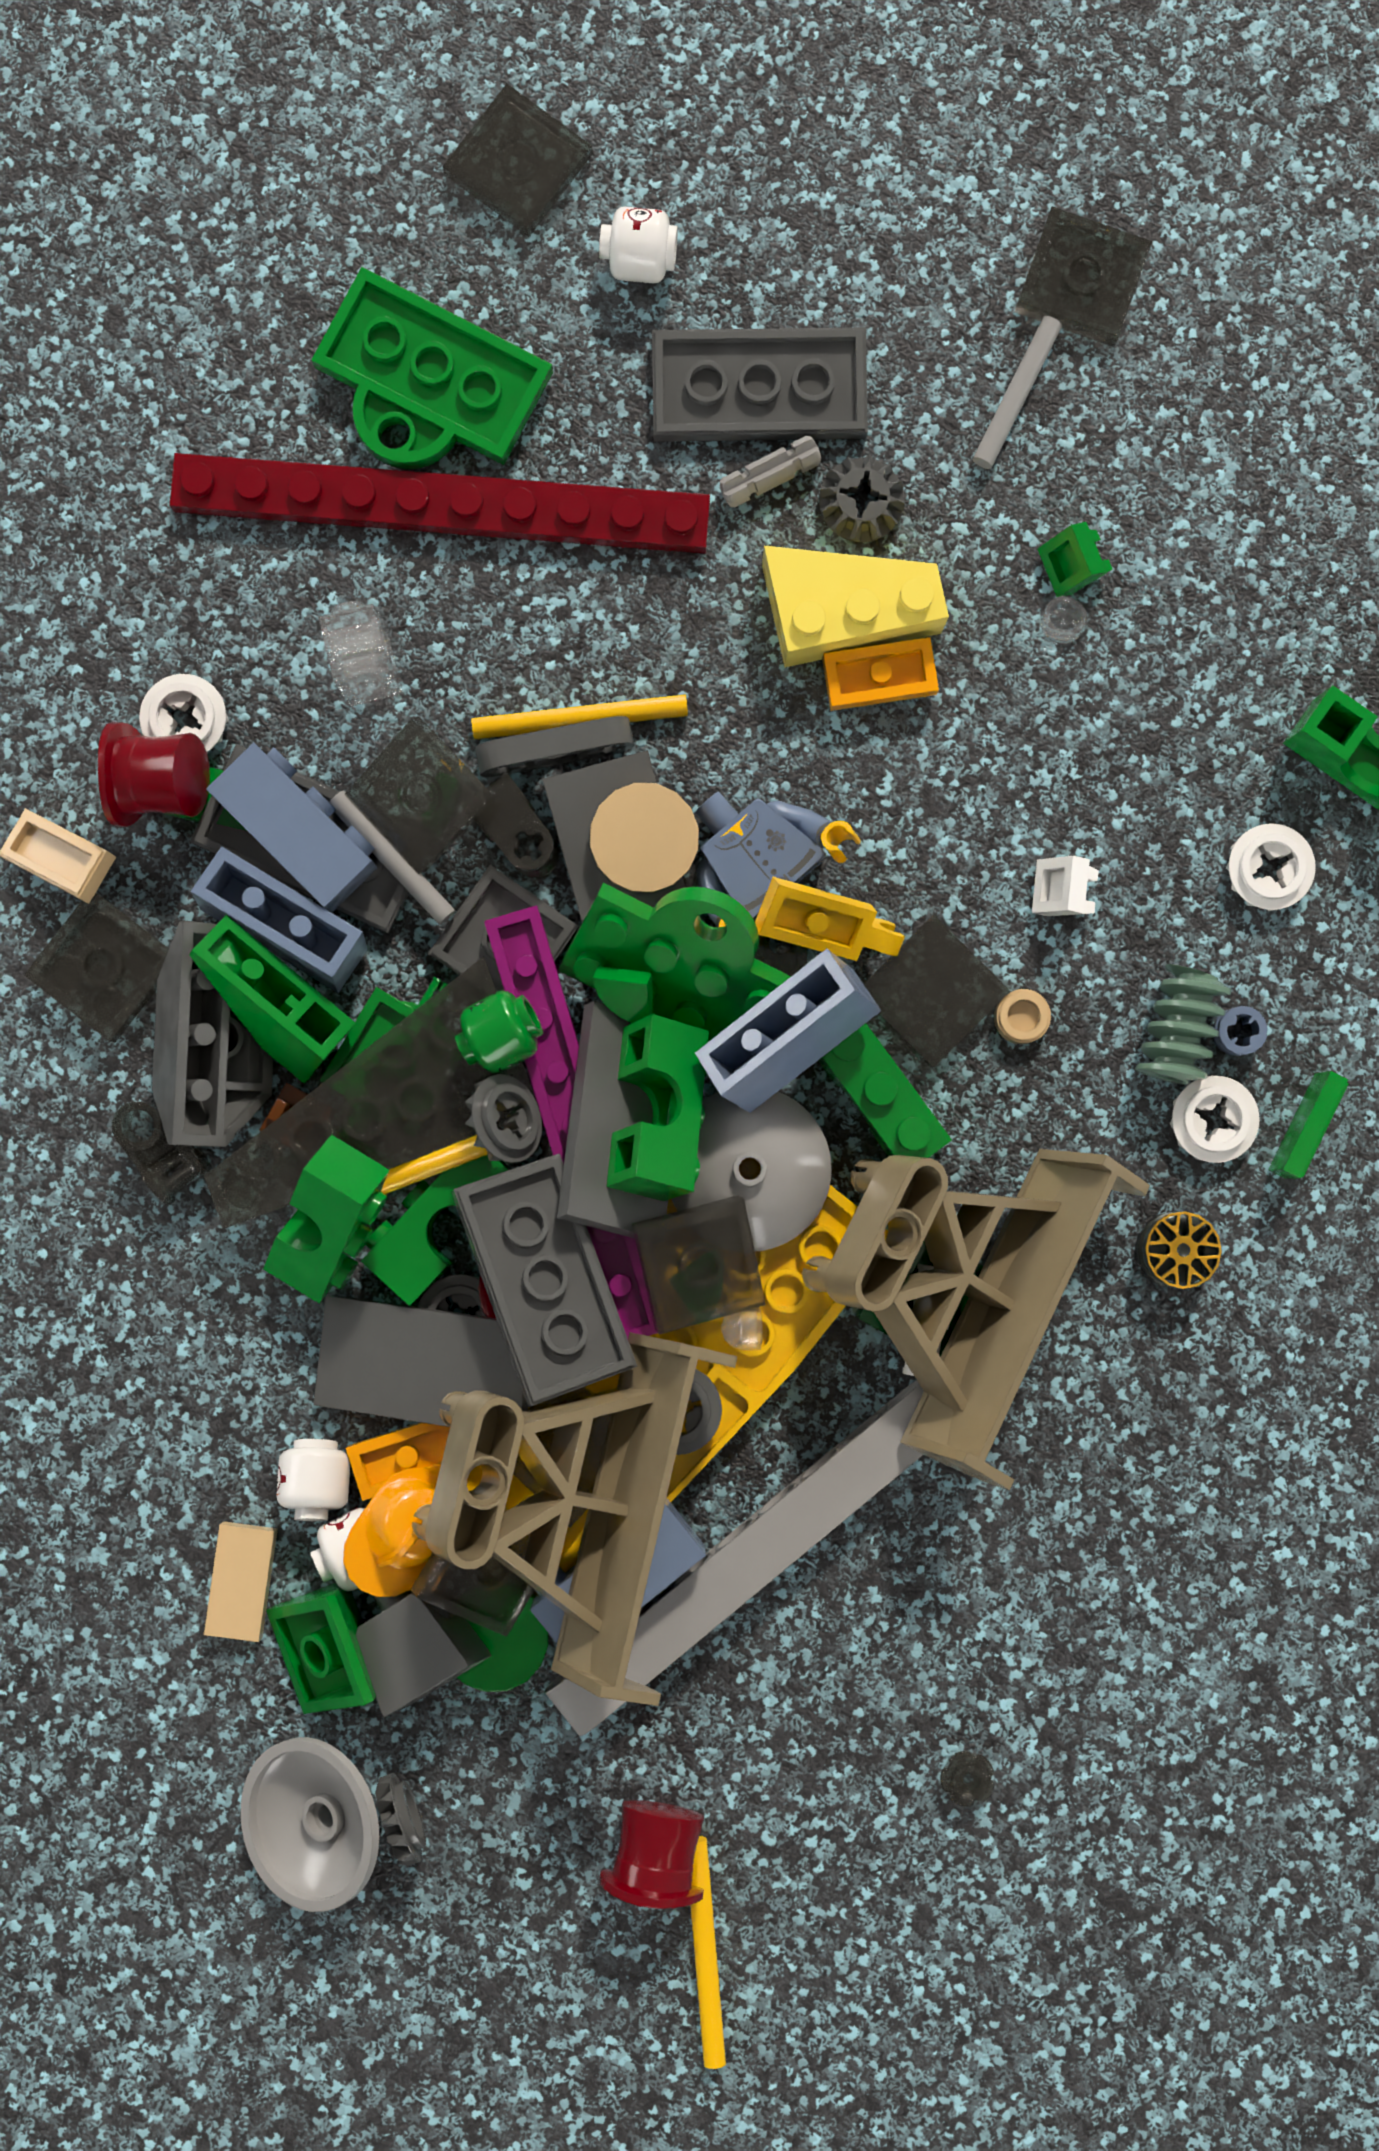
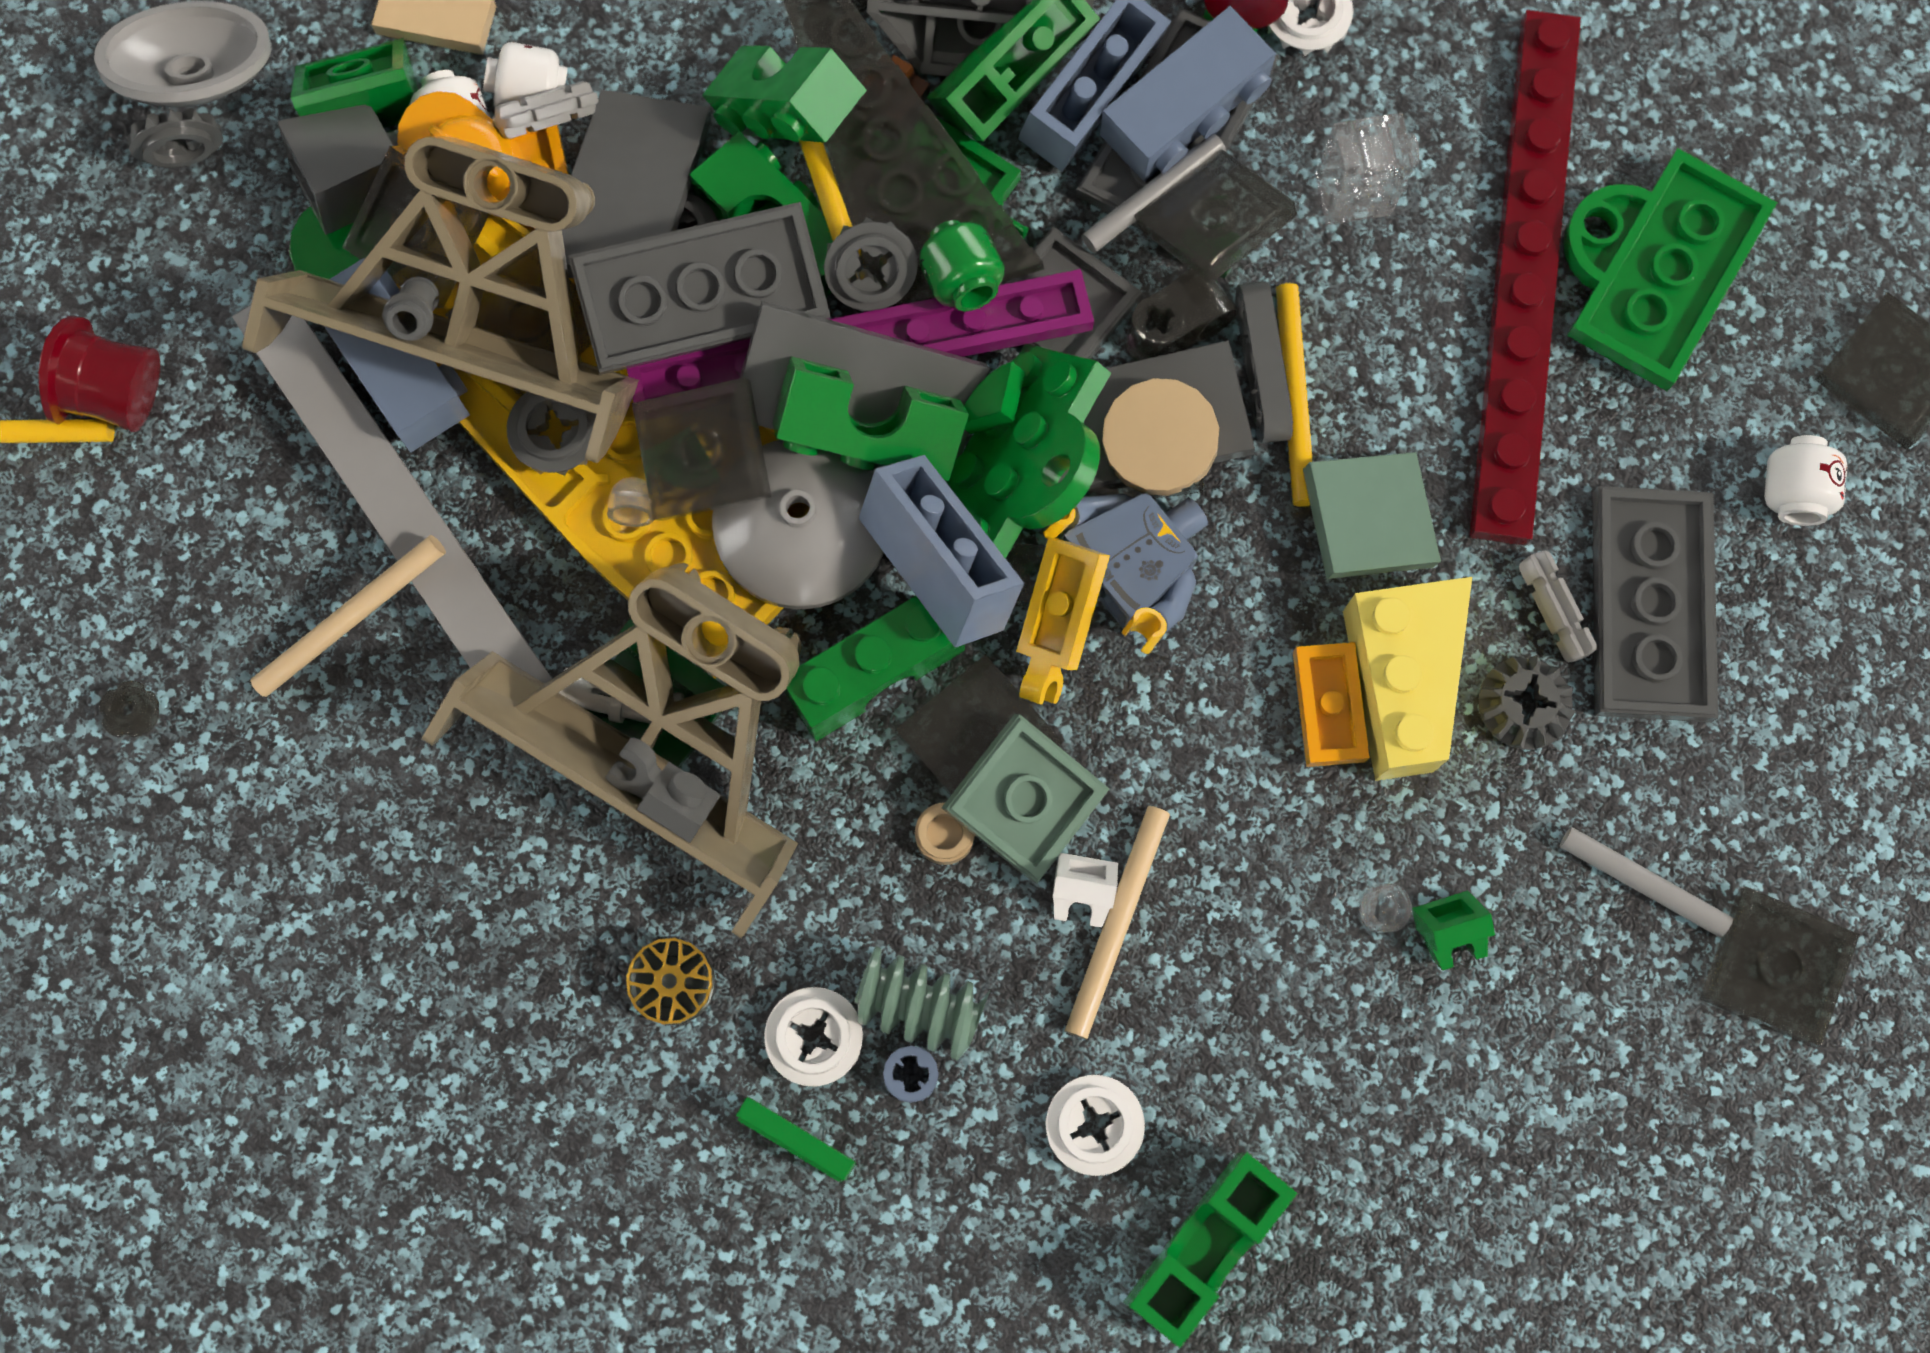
camera: 95 degrees right, 10 degrees down
(352, 1453) = (545, 110): none -> light grey axle
(616, 1547) = (410, 311): none -> dark grey pin
(698, 642) = (1371, 515): none -> sand green tile
(870, 1582) = (348, 615): none -> tan bar
(990, 944) = (1025, 798): none -> sand green tile
(1034, 1259) = (668, 795): none -> dark grey plate
(1099, 859) = (1117, 922): none -> tan bar

